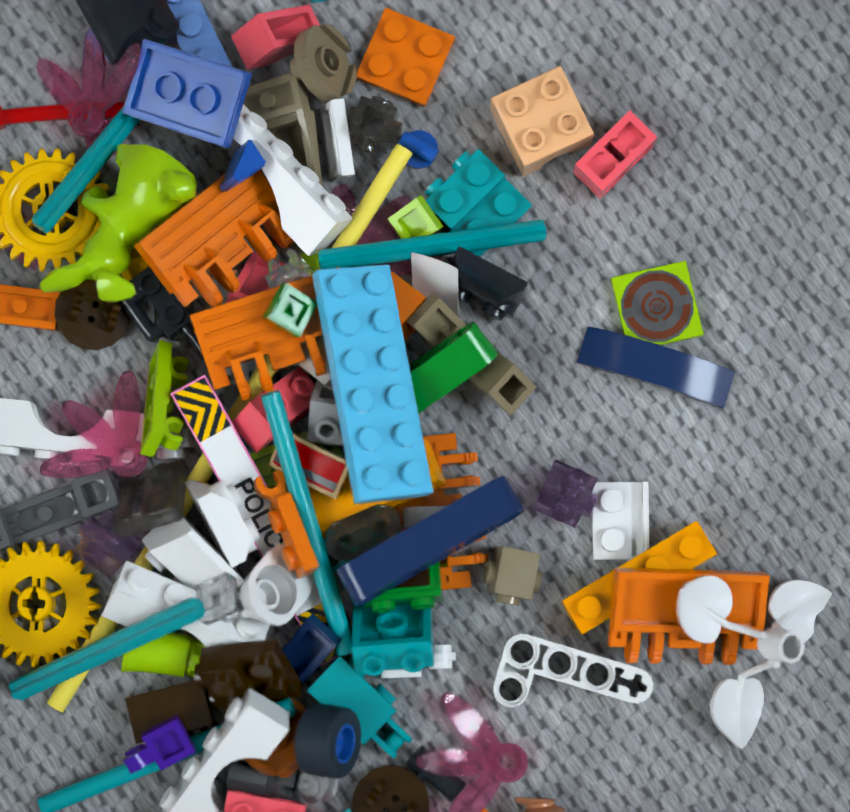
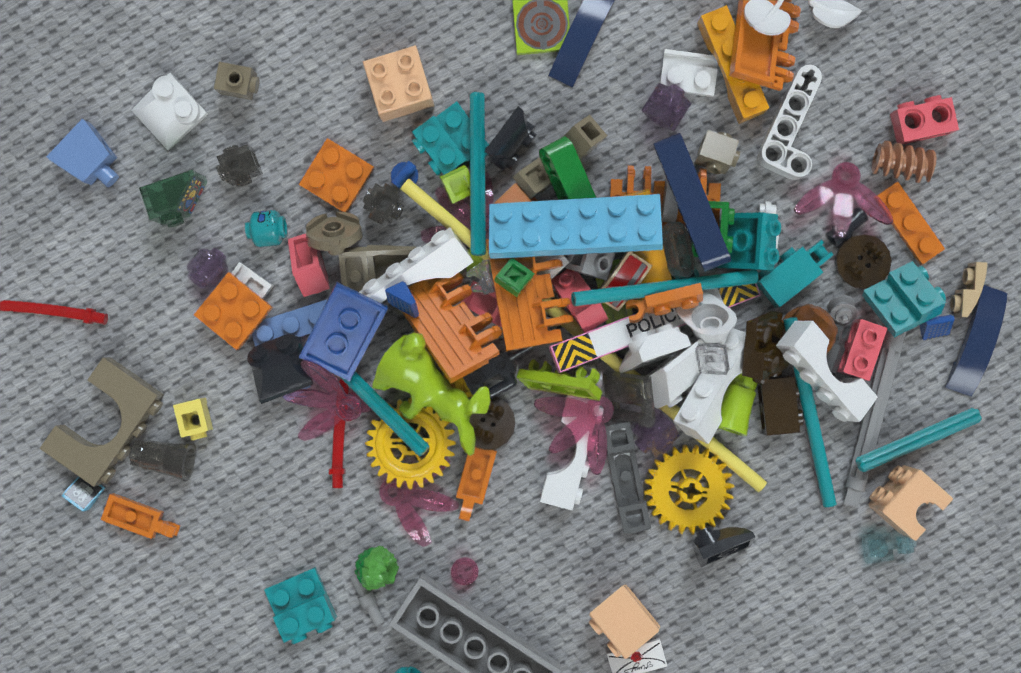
camera: 90 degrees left, 5 degrees up
(107, 648) = (732, 441): teal axle -> none
(164, 743) = (804, 412): dark purple plate -> none
(310, 647) = (748, 300): dark blue tile -> none
(327, 741) = (820, 296): black wheel -> none
(337, 140) = (390, 232): white tile -> none
(435, 277) = (501, 174): white sticker -> none
(615, 154) = (430, 35): coral brick -> none

